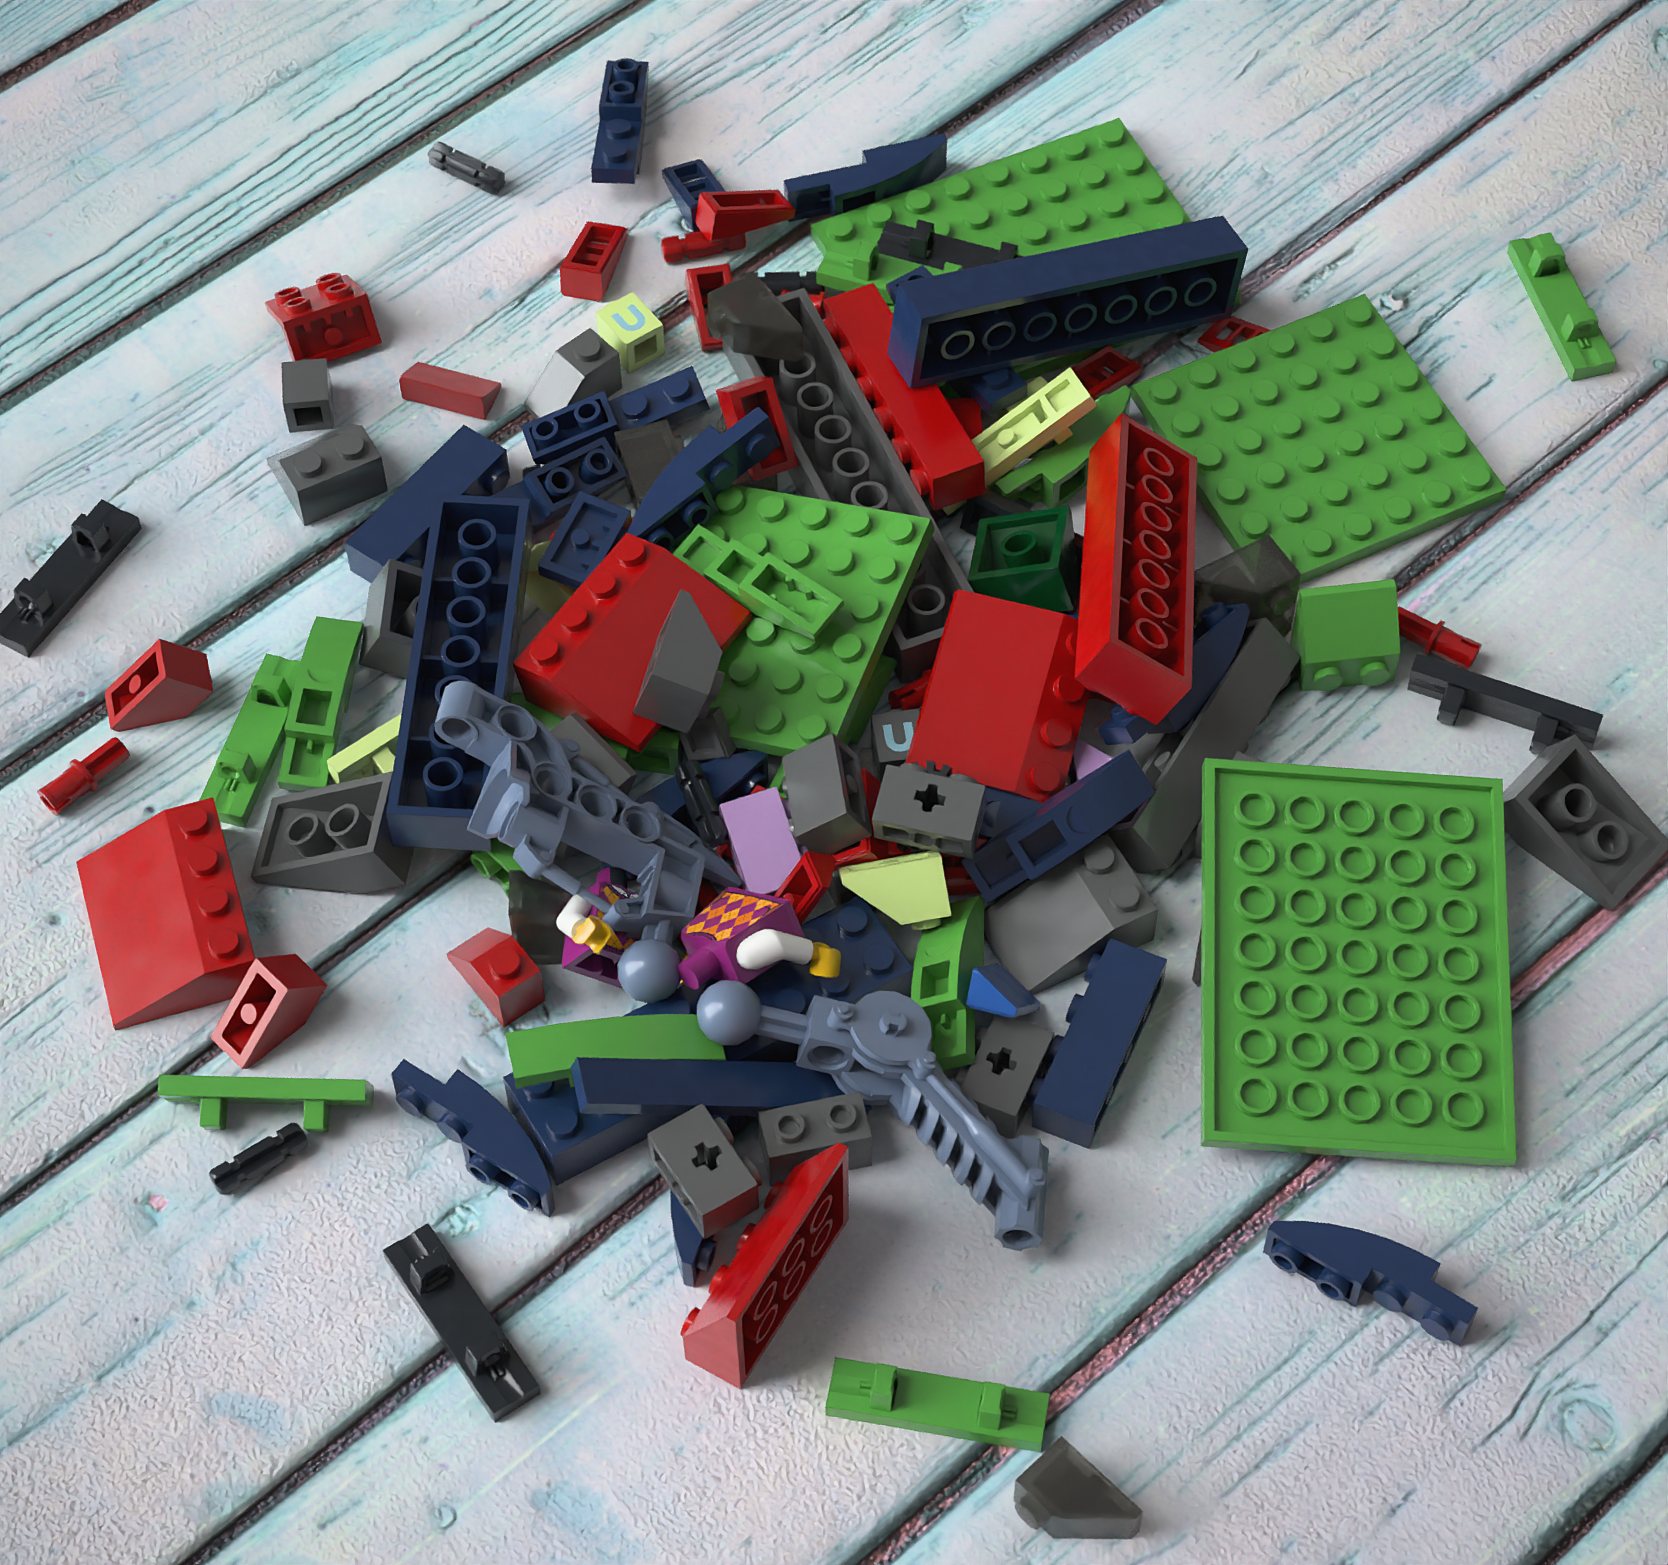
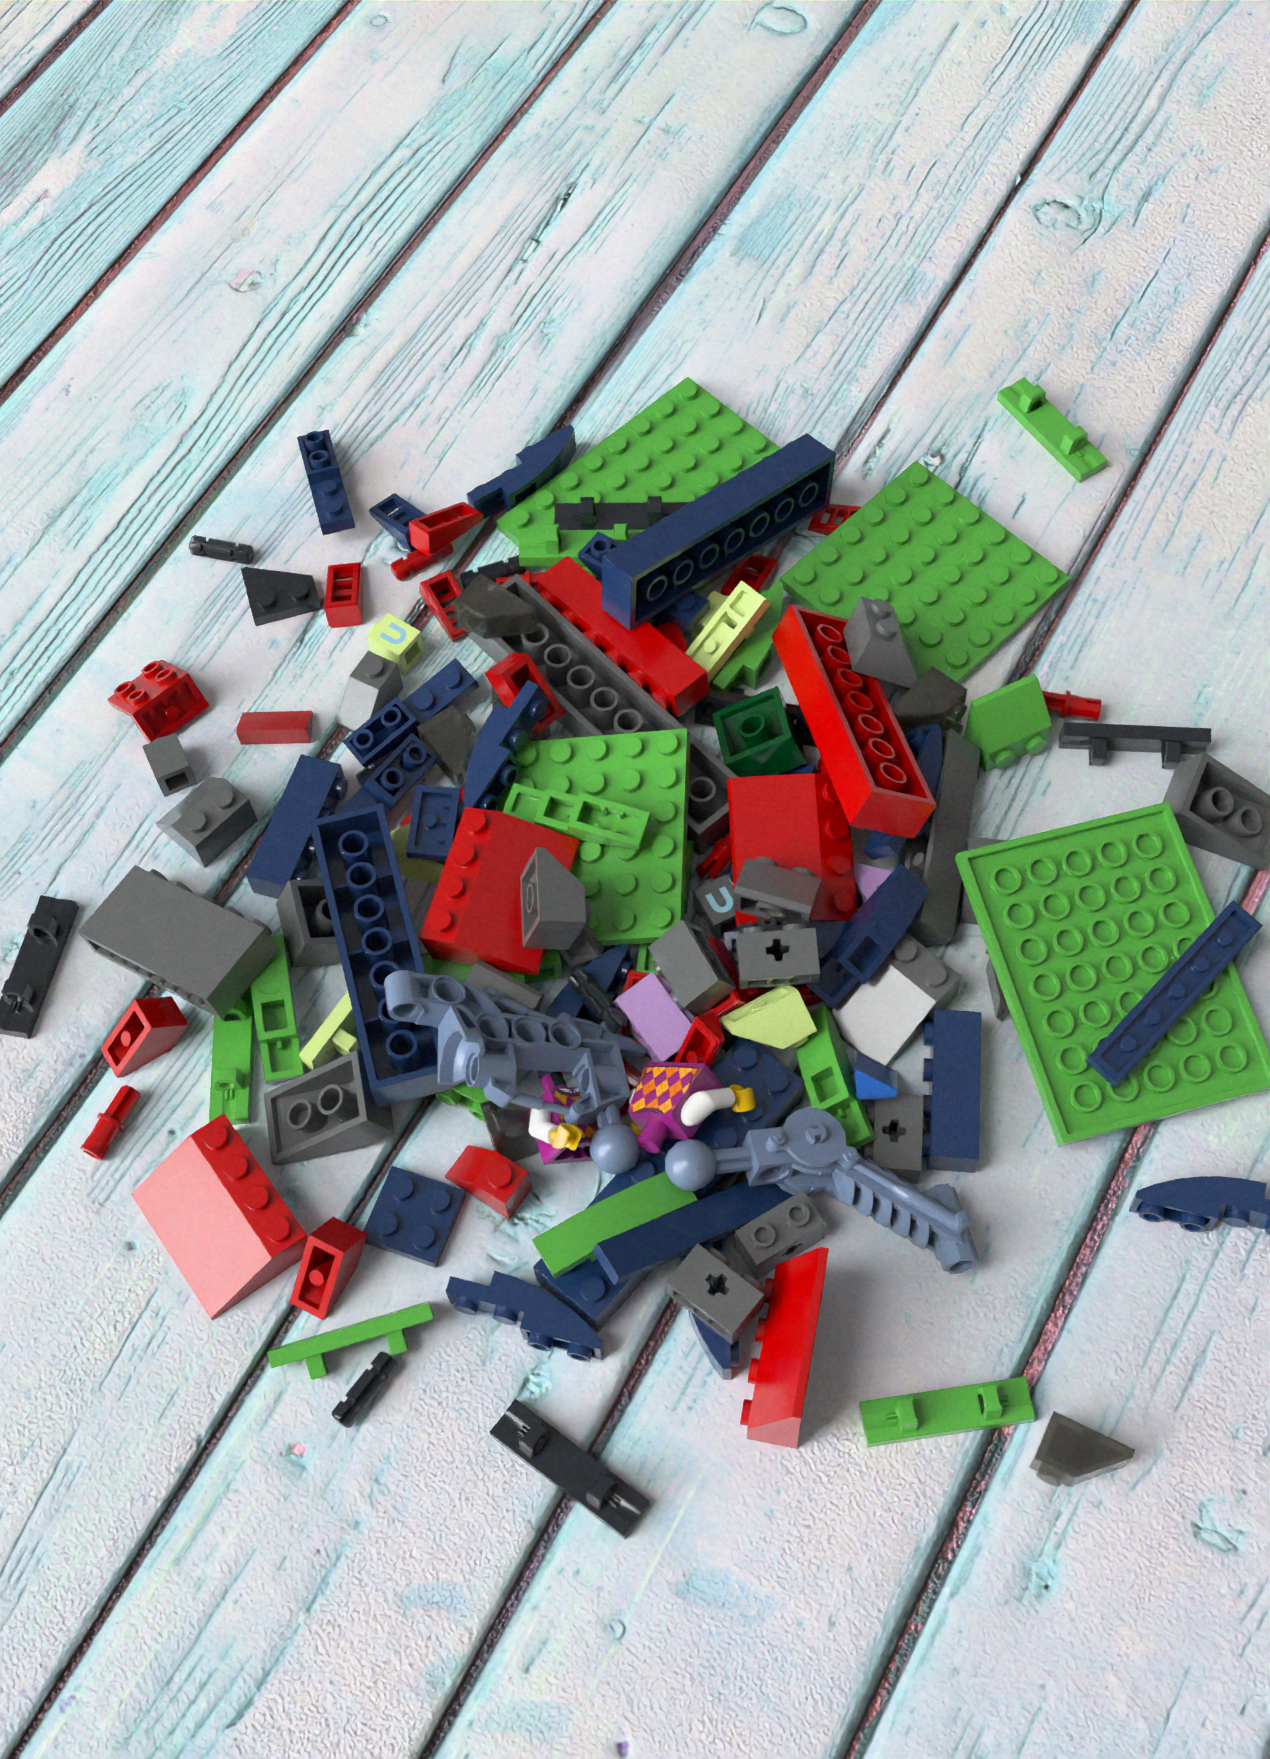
camera: 15 degrees left, 5 degrees up
(239, 592) = (180, 940): none -> dark grey brick
(392, 987) = (414, 1216): none -> dark blue plate
(515, 239) = (279, 594): none -> black wing
(952, 732) = (775, 891): none -> dark grey slope
(1217, 491) = (879, 643): none -> dark grey slope
(1416, 1007) = (1173, 994): none -> dark blue tile

